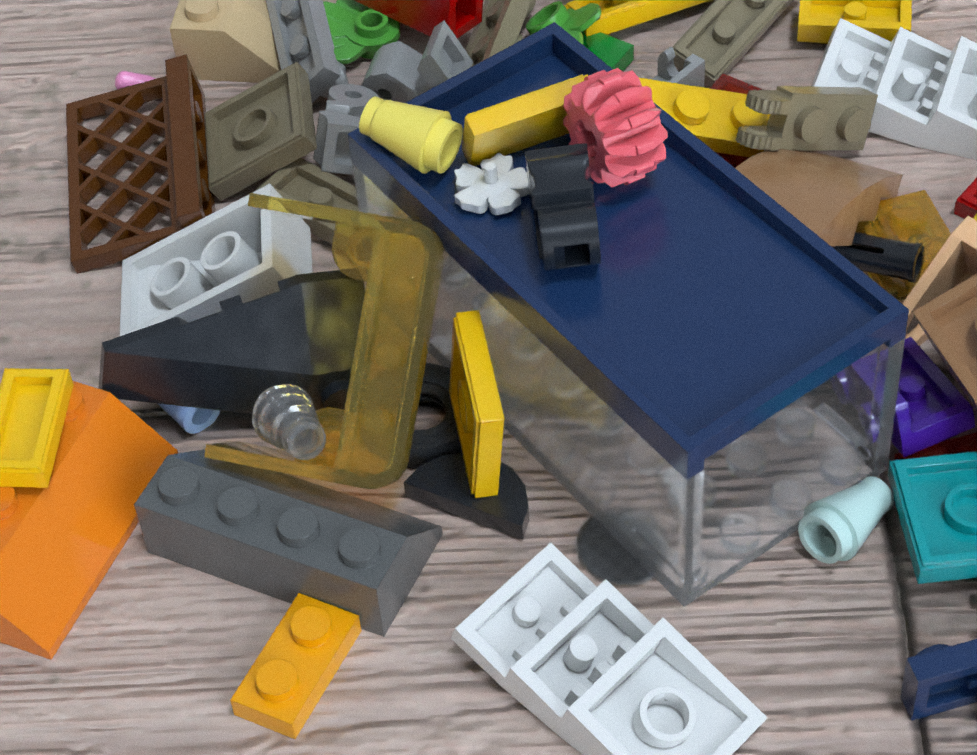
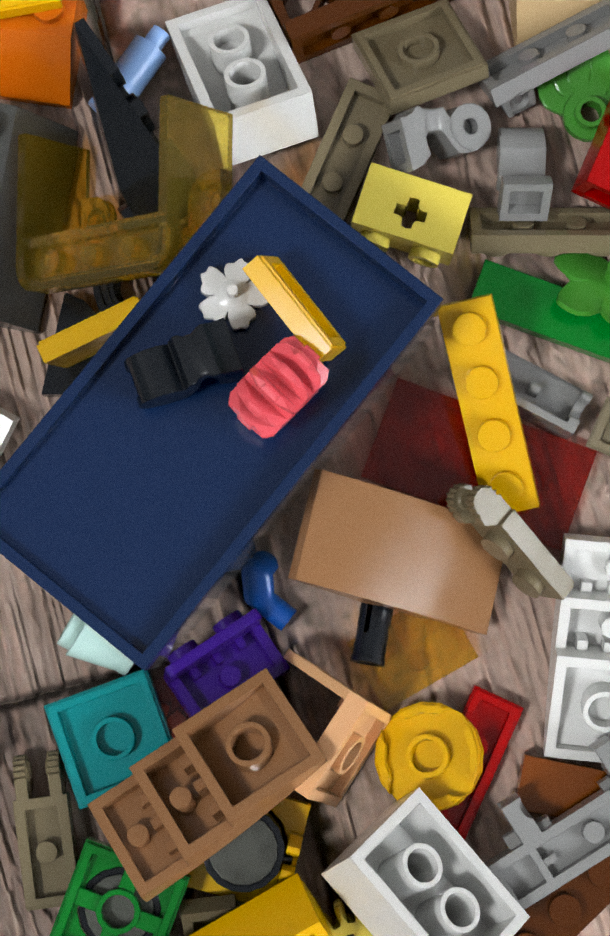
camera: 75 degrees right, 35 degrees up
(289, 421) = (74, 190): clear cone -> none
(413, 133) = (257, 211): light yellow cone -> none

